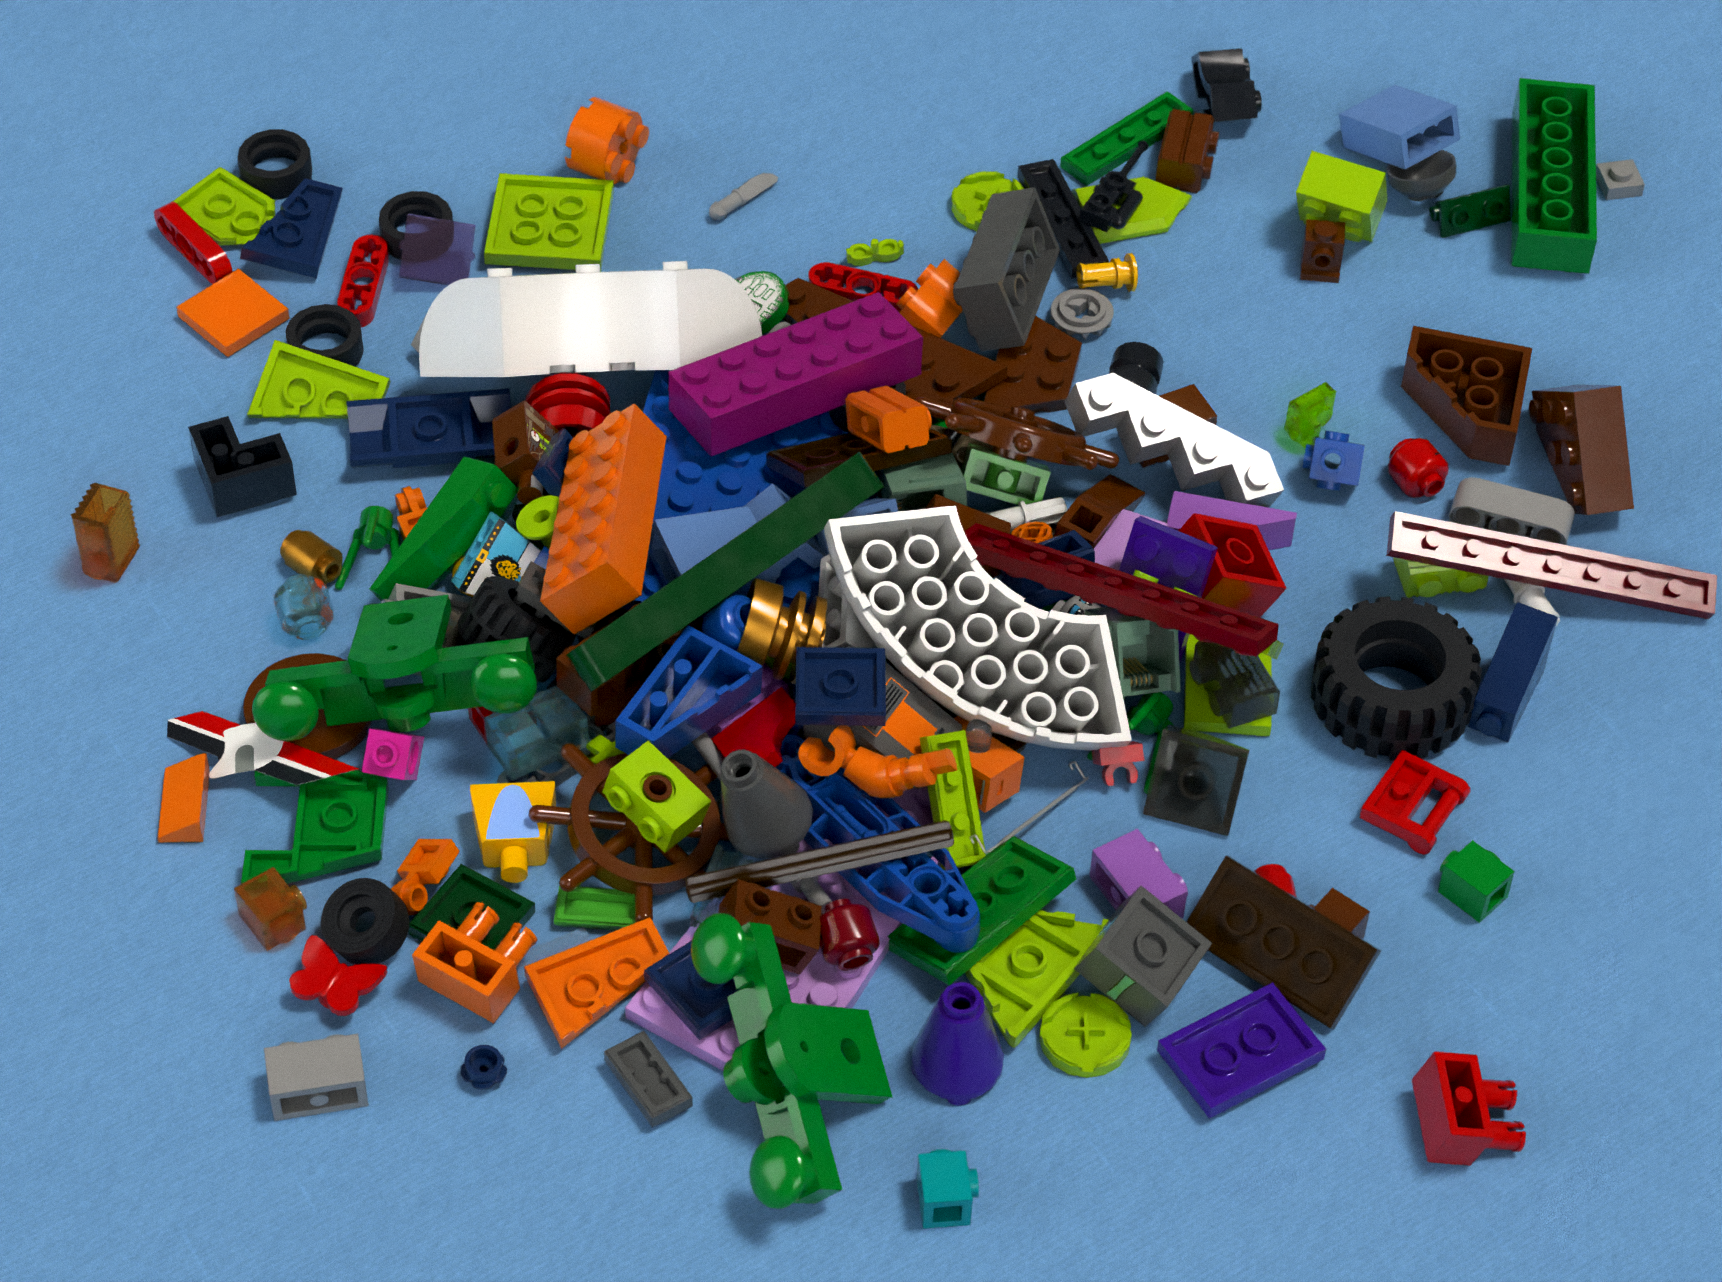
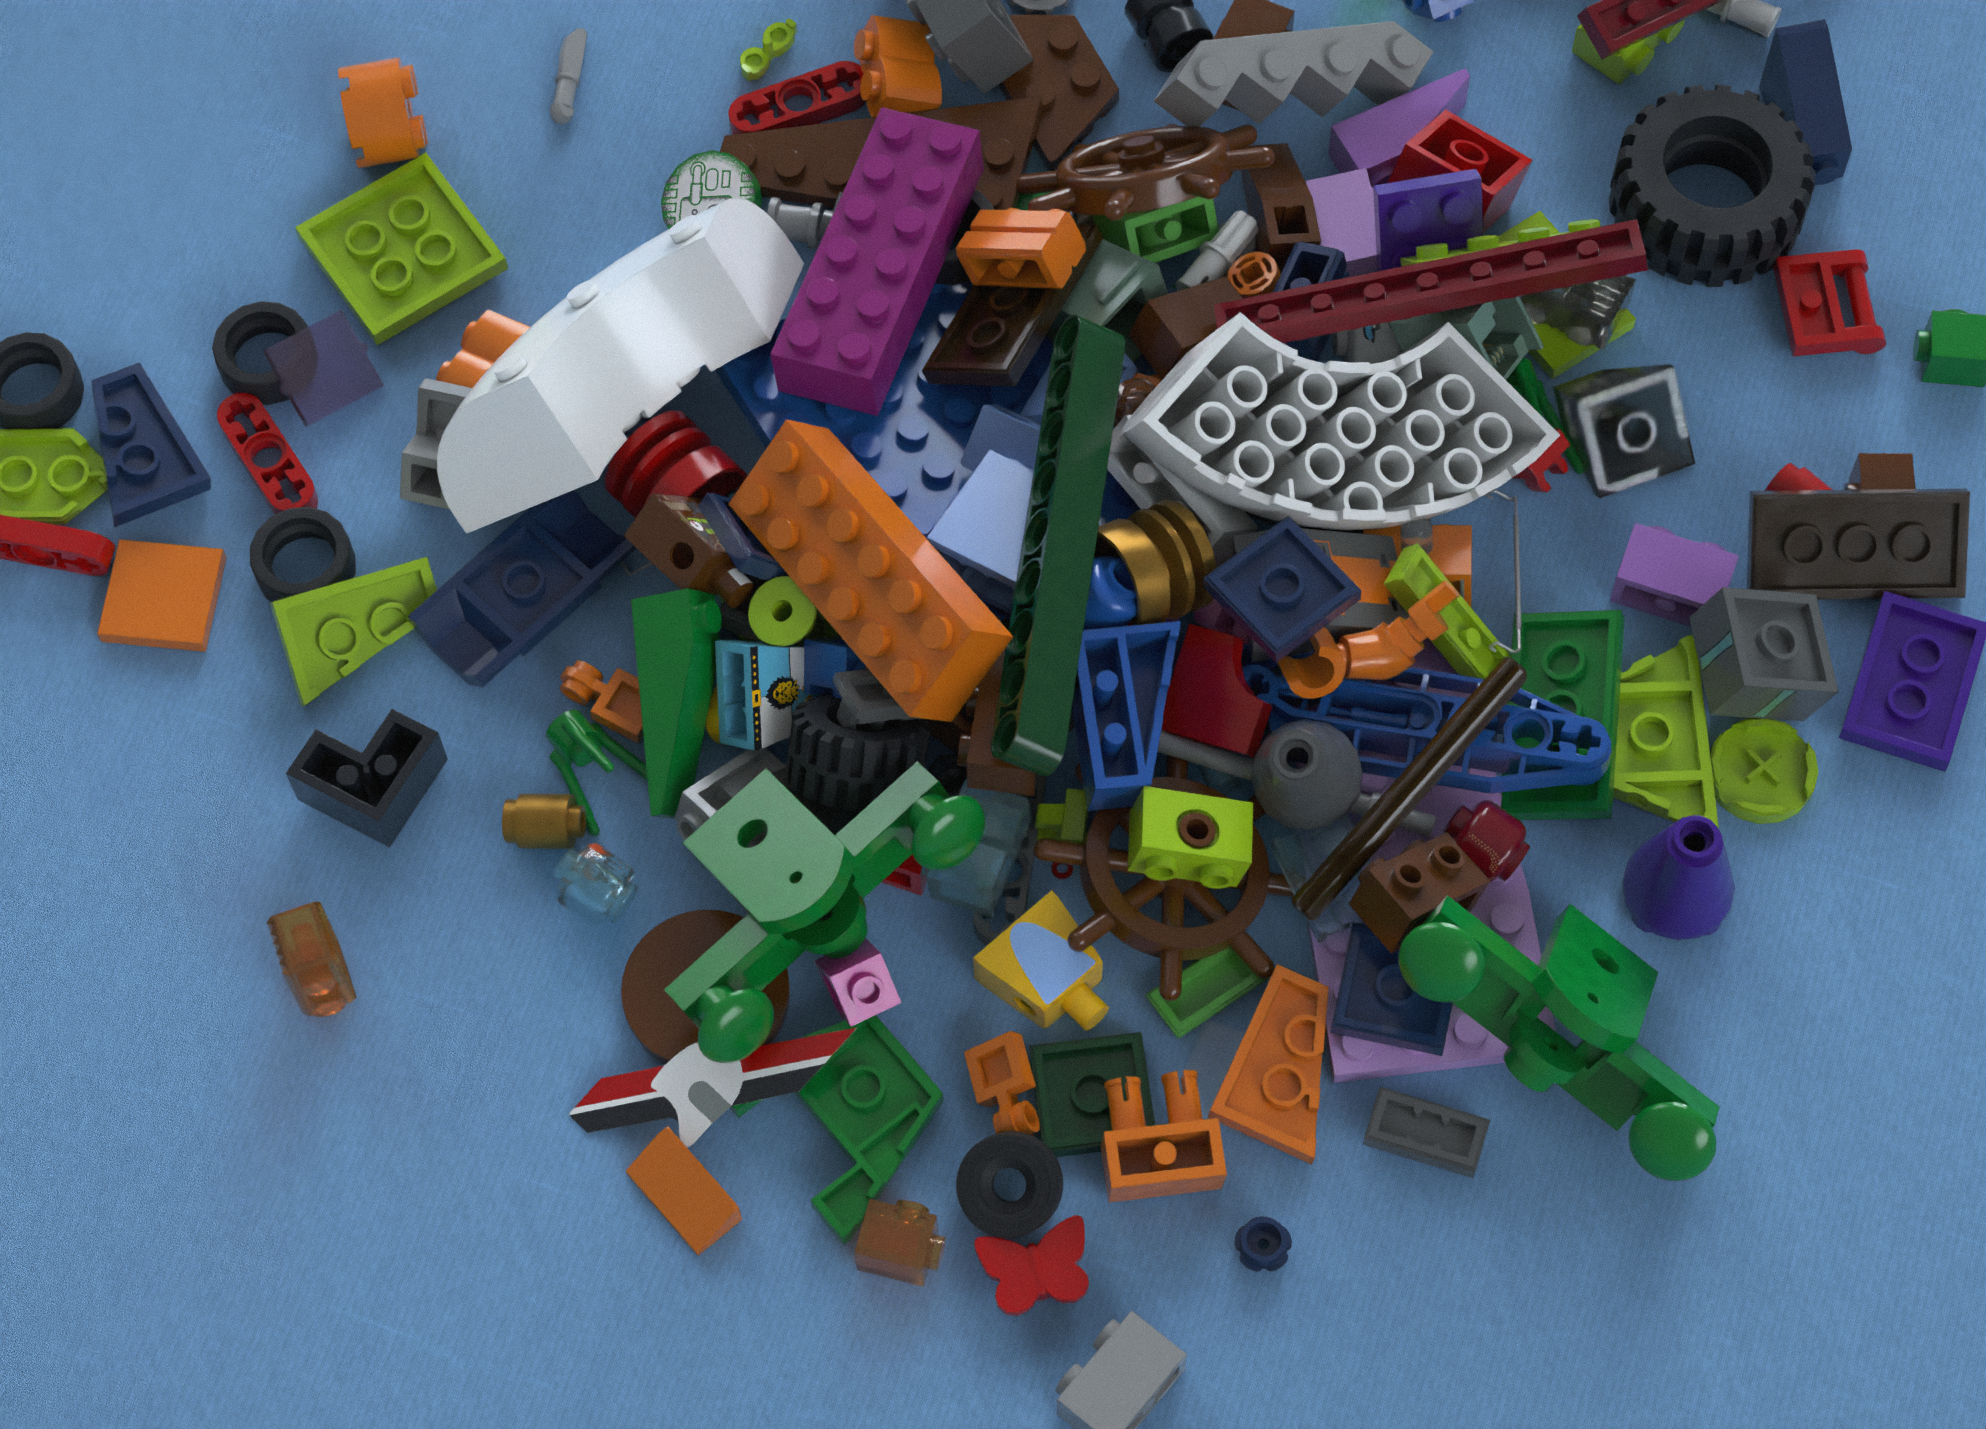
camera: 35 degrees left, 15 degrees up
(946, 1188) = (1796, 1028): teal brick -> none

